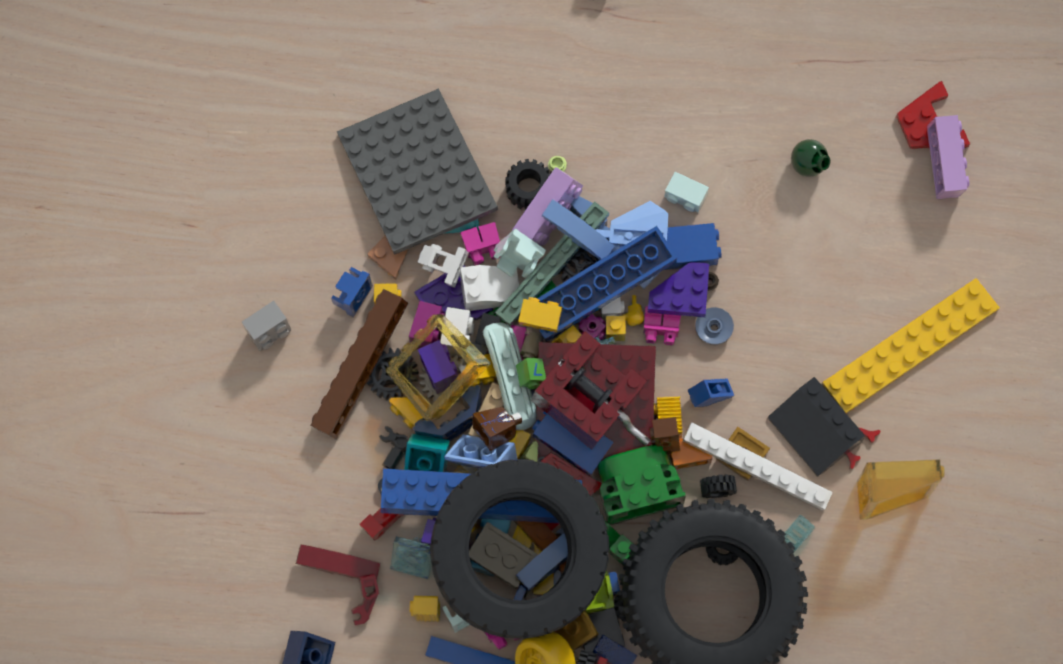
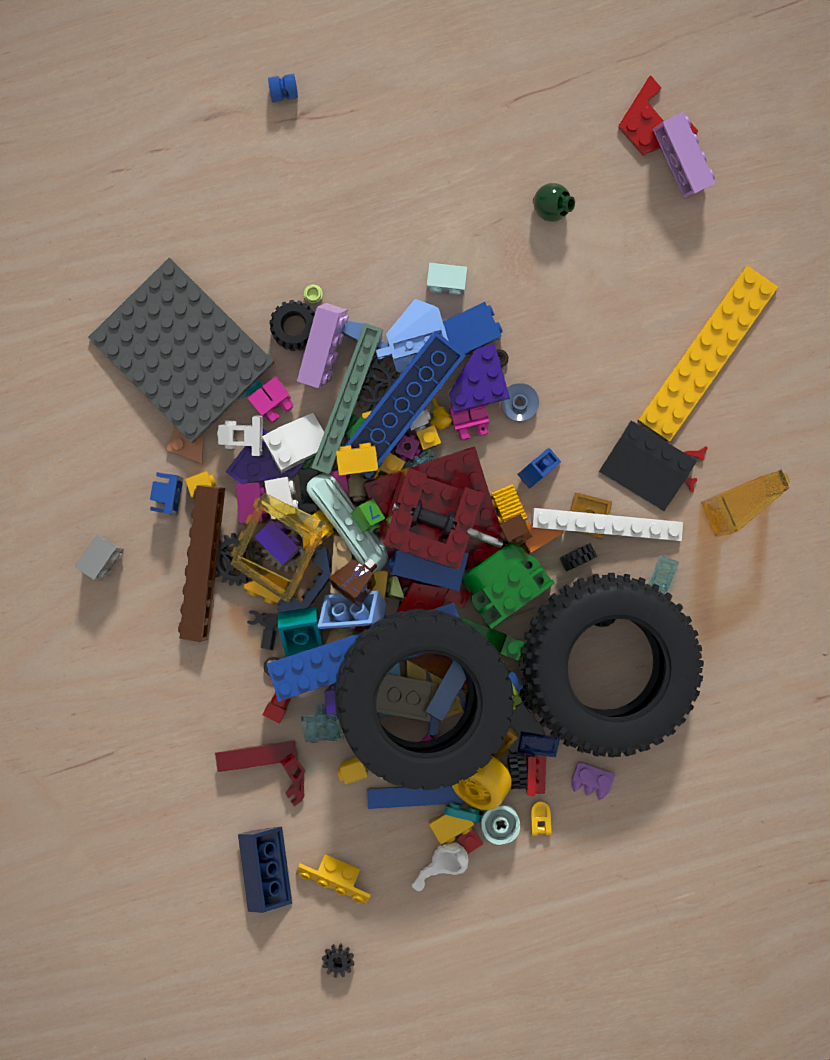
camera: 25 degrees left, 15 degrees up
(518, 251) = (310, 398): light aqua panel -> none
(578, 230) = (360, 360): medium blue slope -> none

